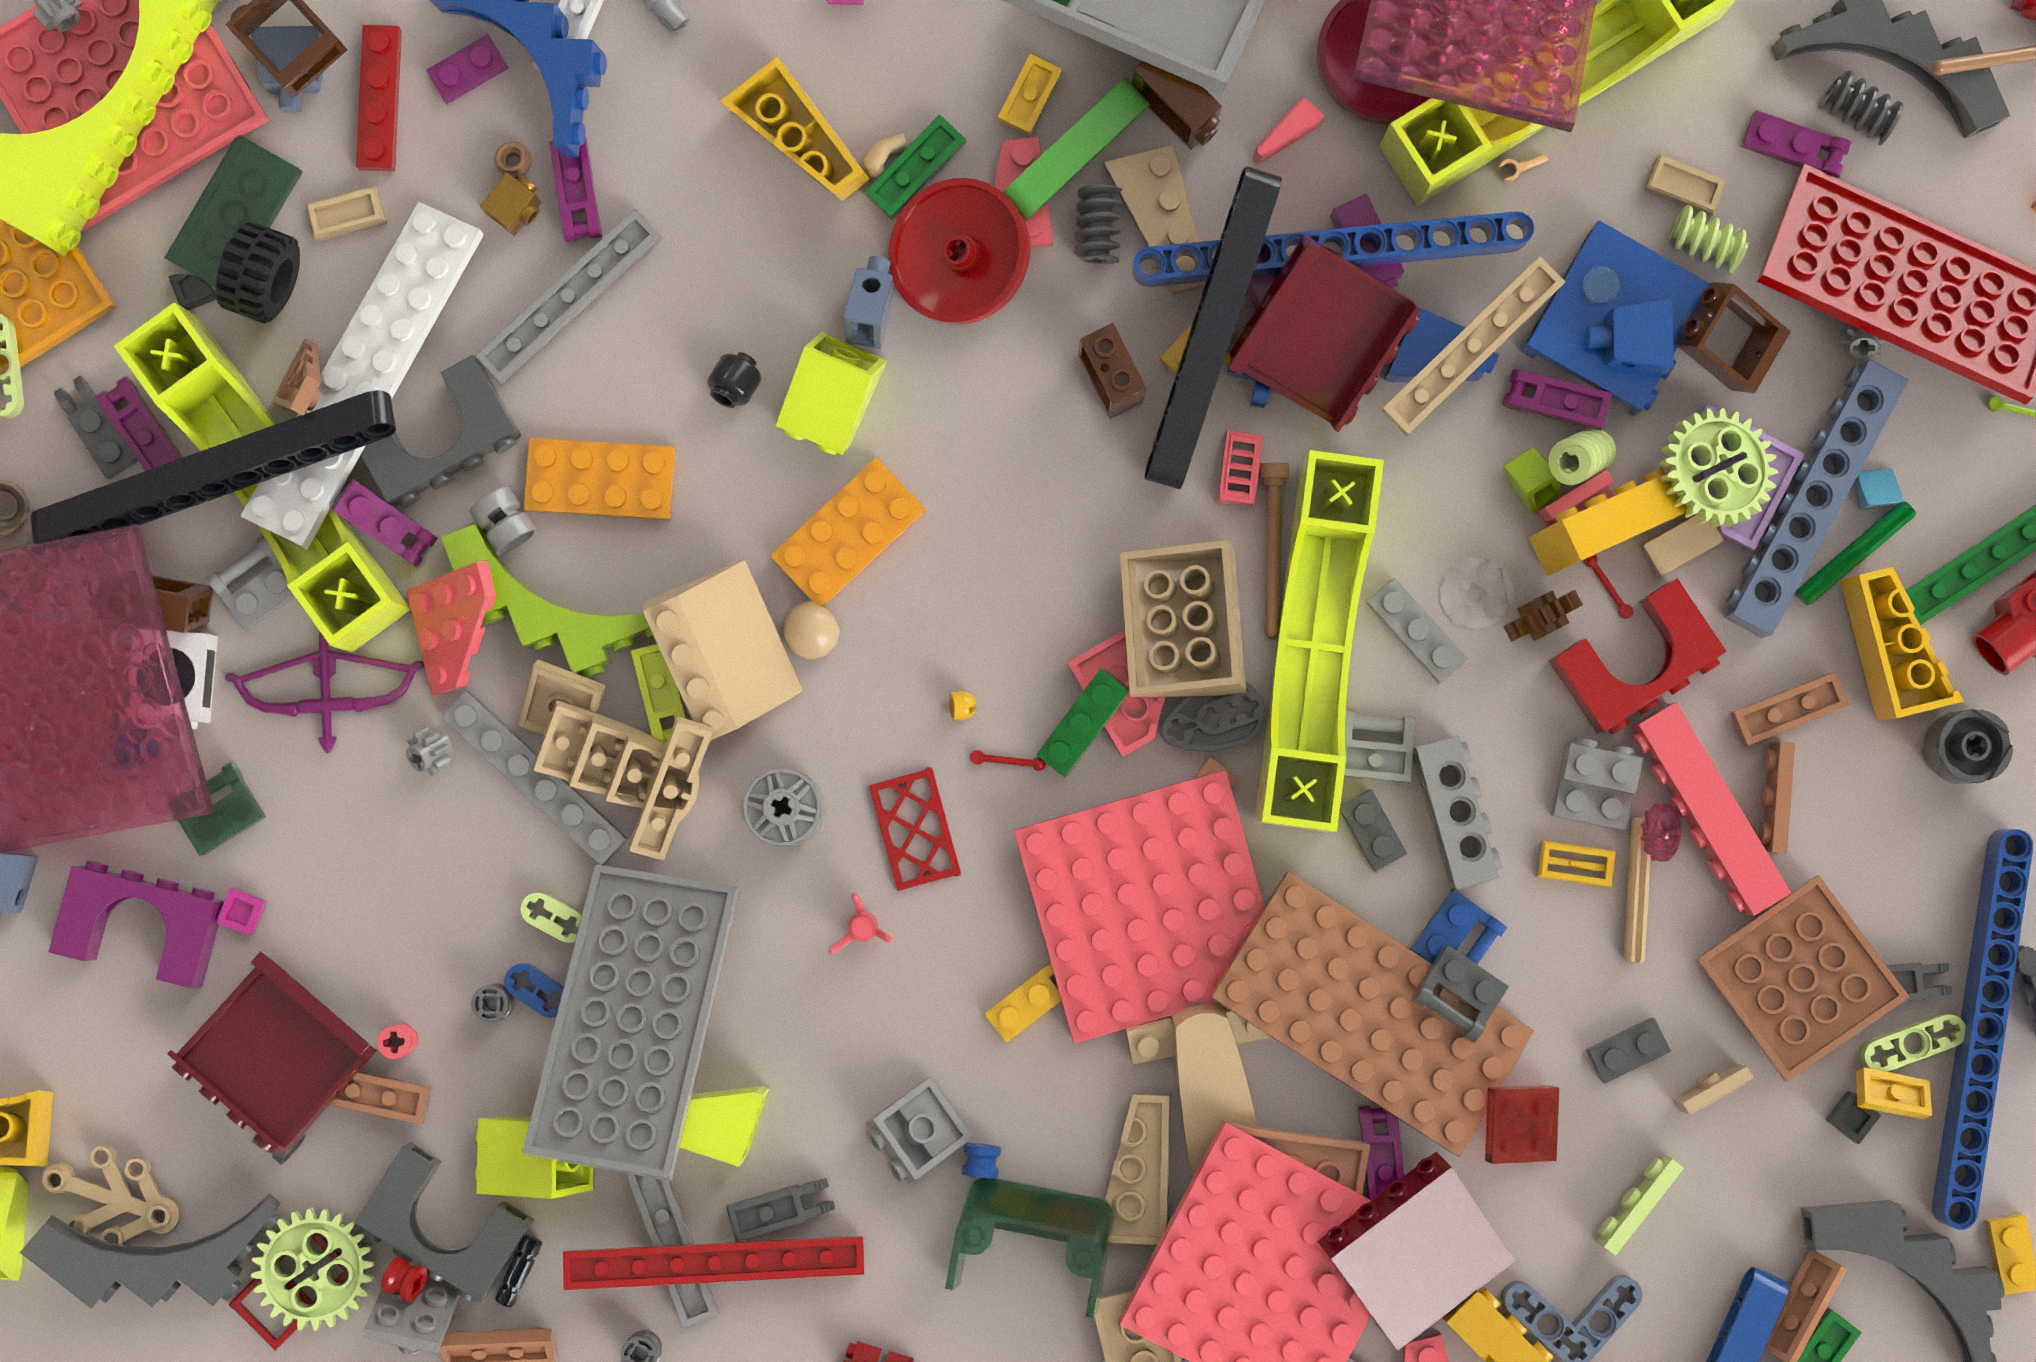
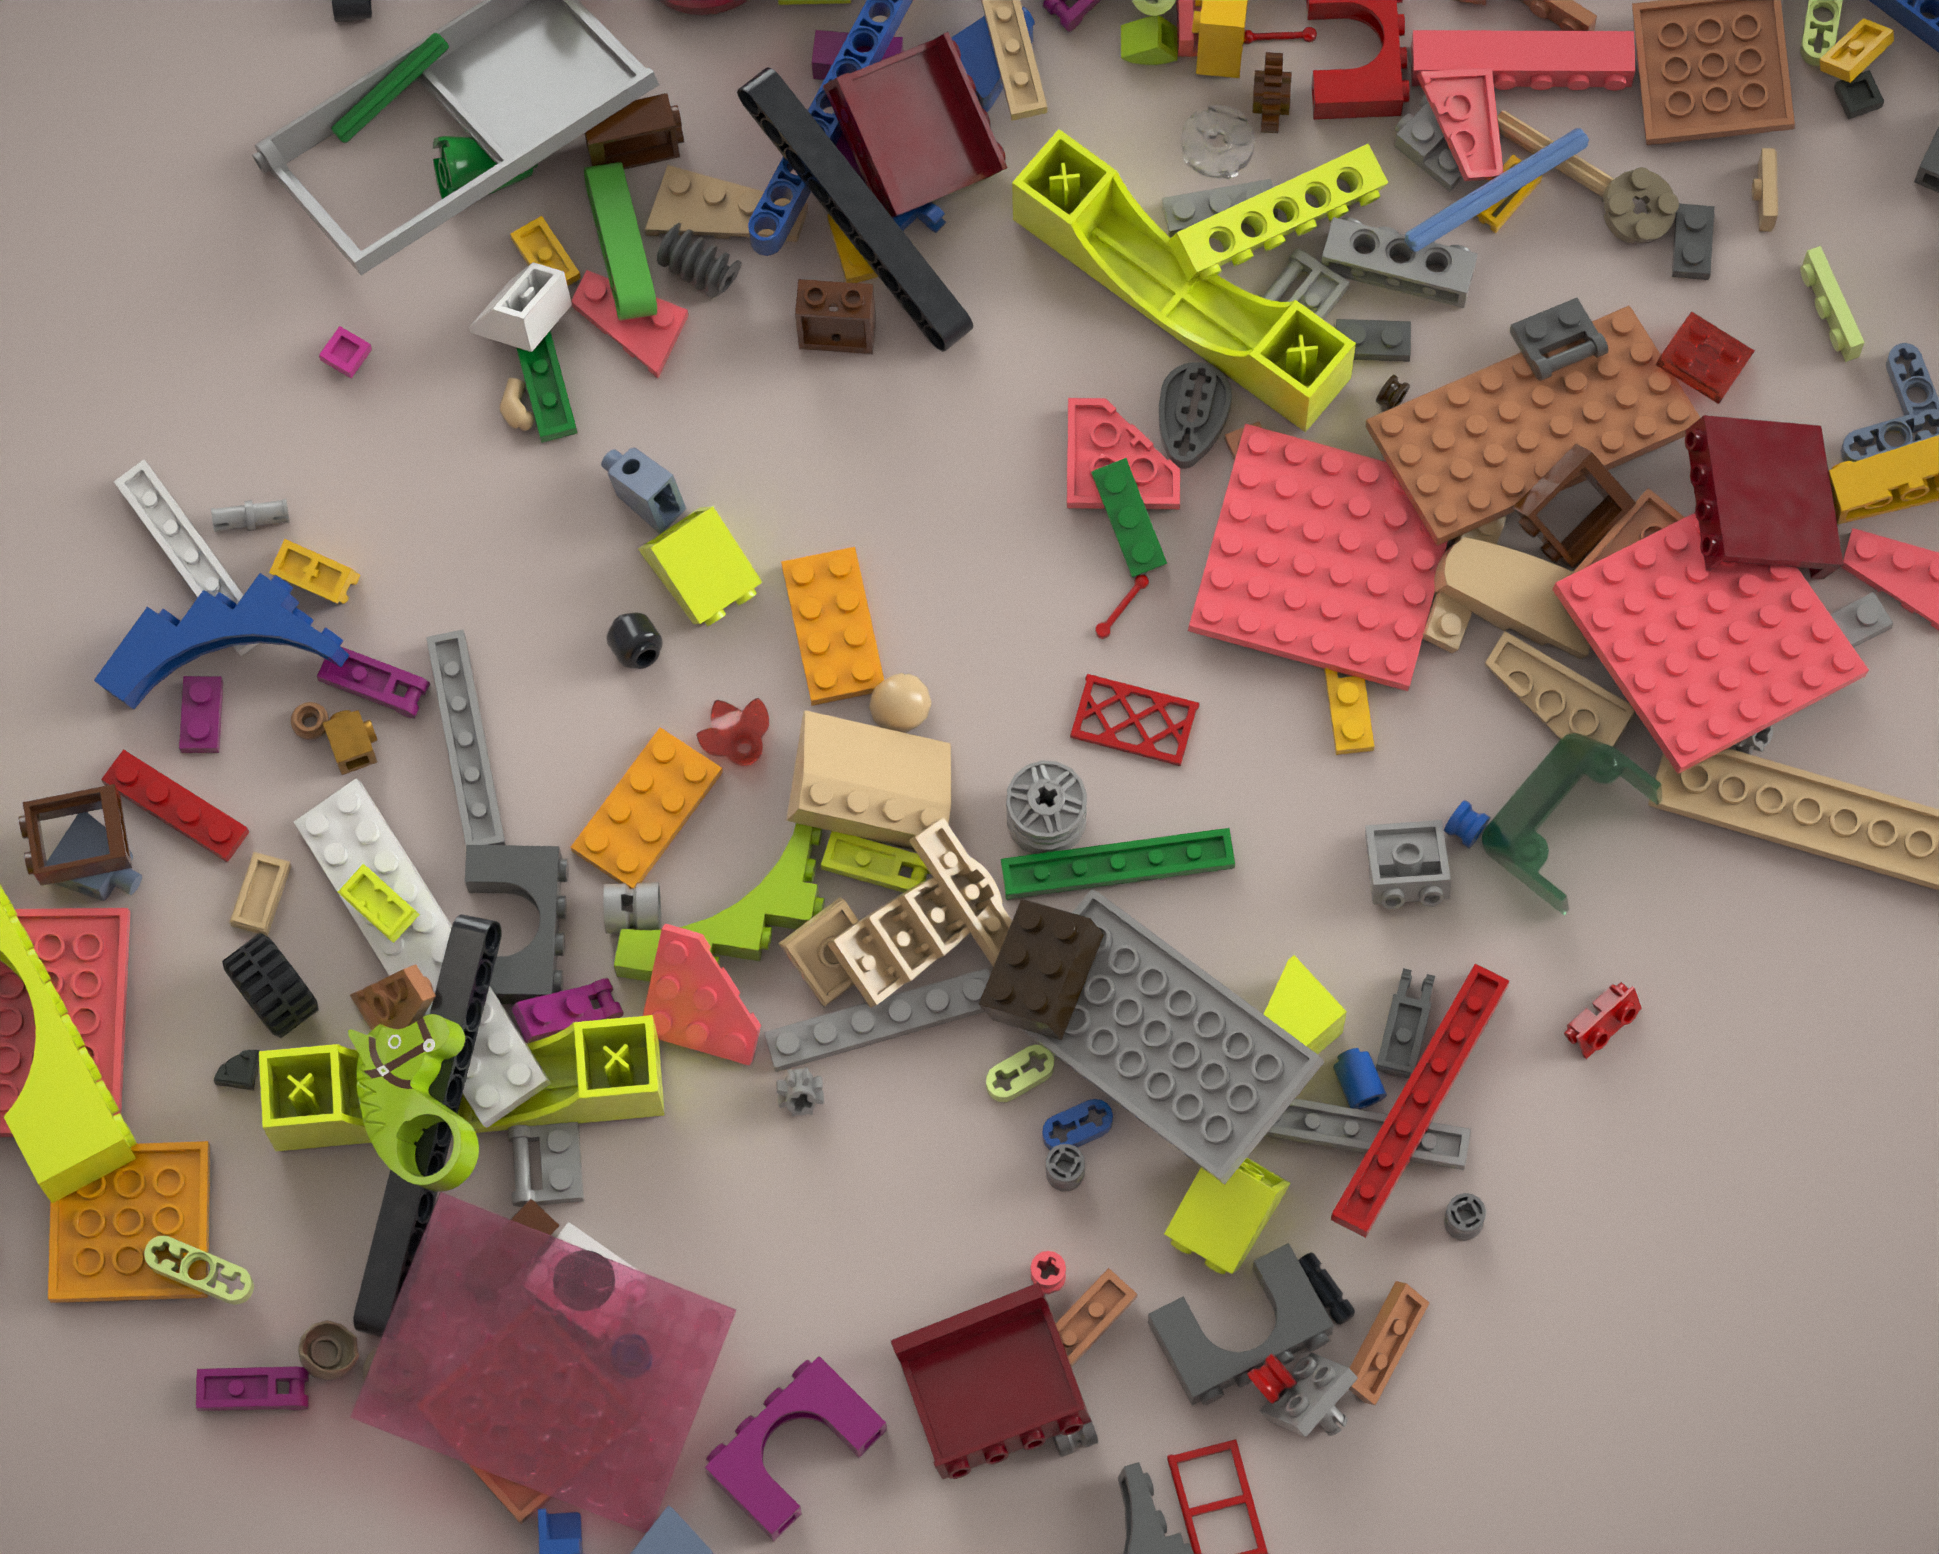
camera: 55 degrees left, 15 degrees down
(96, 430) = (312, 1226): dark grey hinge -> none
(138, 425) = (334, 1185): magenta plate -> none
(199, 443) = (395, 1099): none -> lime animal
(230, 814) = (749, 1326): clear green plate -> none
(241, 911) = (841, 1347): dark pink plate -> none
(243, 189) = (195, 992): clear green tile -> none
(295, 1242) = (1247, 1466): yellowish green gear -> none
(324, 668) = (664, 1149): magenta piece -> none
(373, 316) = (378, 903): none -> neon yellow plate
(635, 889) = (1041, 969): none -> dark brown brick
(636, 82) = (313, 572): none -> yellow hinge
(707, 1198) = (1359, 1079): none -> blue brick
(710, 504) = (734, 728): none -> clear red plate
(776, 890) = (1117, 863): none -> green plate
(790, 121) = (446, 459): yellow wedge -> none
(861, 927) = (1194, 805): coral plant -> none
(959, 251) = (646, 385): red dish -> none
(961, 705) = (1048, 616): yellow hinge -> none
(965, 108) = (525, 308): none -> white slope
(1183, 621) = (1092, 381): tan slope -> none
(1236, 497) = (1000, 294): coral slope -> none
(1274, 478) = (1013, 246): medium nougat piece -> none
(1297, 123) = (715, 54): coral slope -> none
(1304, 1115) = (1594, 526): none -> reddish brown window
(1331, 876) = (1392, 392): none -> dark brown bush
(1385, 1152) = (1666, 483): magenta plate -> none
(1451, 926) = (1494, 317): blue plate -> none
(1519, 726) = (1357, 168): none -> neon yellow brick
(1568, 860) = (1496, 189): none -> medium blue axle
(1618, 972) = (1619, 207): none -> dark tan plate
(1619, 798) = (1467, 117): none -> coral wing
(1664, 843) = (1519, 107): clear pink gear -> none

